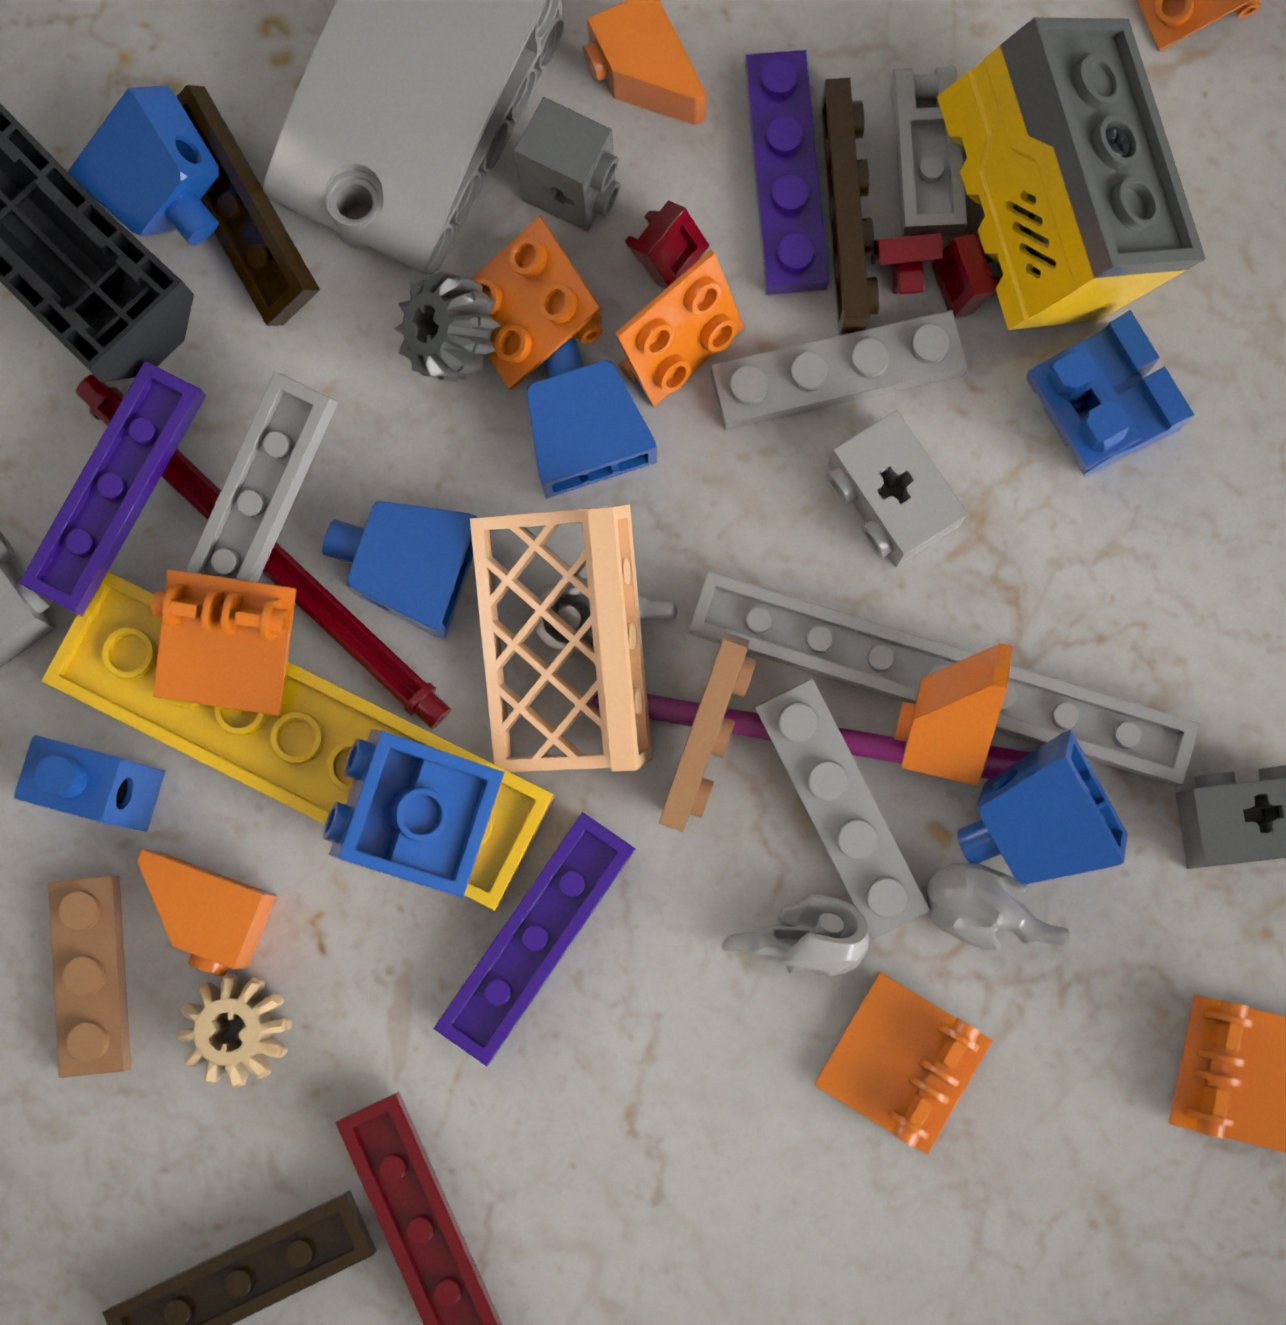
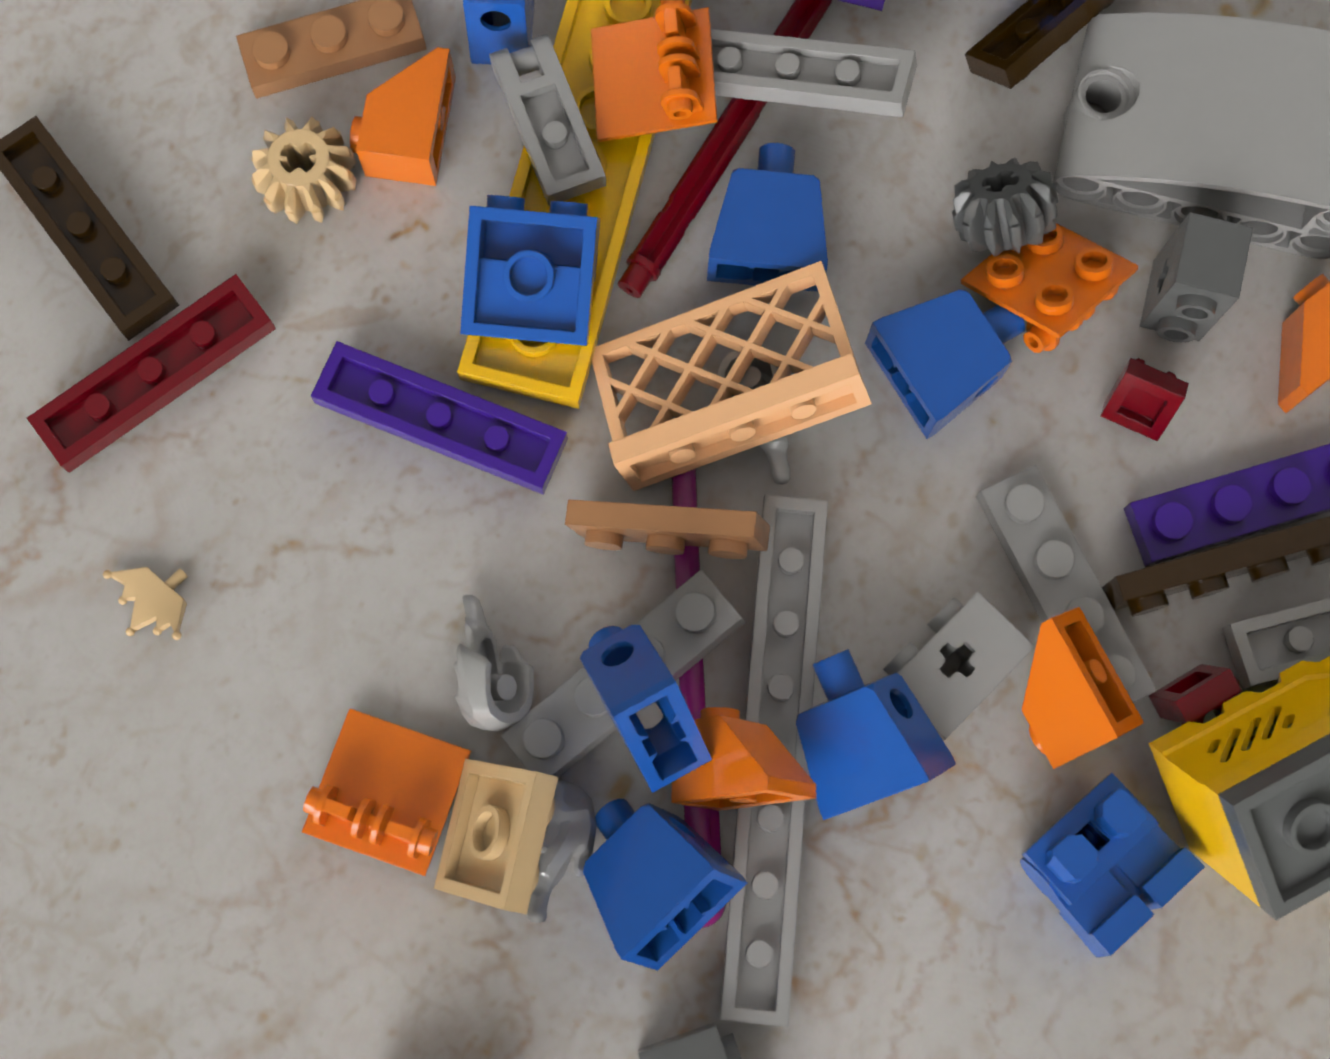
camera: 70 degrees right, 5 degrees down
(247, 761) = (548, 121): none -> light grey plate
(660, 1268) = (152, 598): none -> tan piece
(679, 330) = (1061, 420): orange hinge -> none
(888, 790) = (629, 678): none -> blue torso
(906, 259) = (1199, 632): dark red tile -> none
(948, 383) = (1074, 692): none -> orange slope
(955, 586) = (866, 738): none -> blue torso
(976, 960) = (496, 835): none -> tan plate

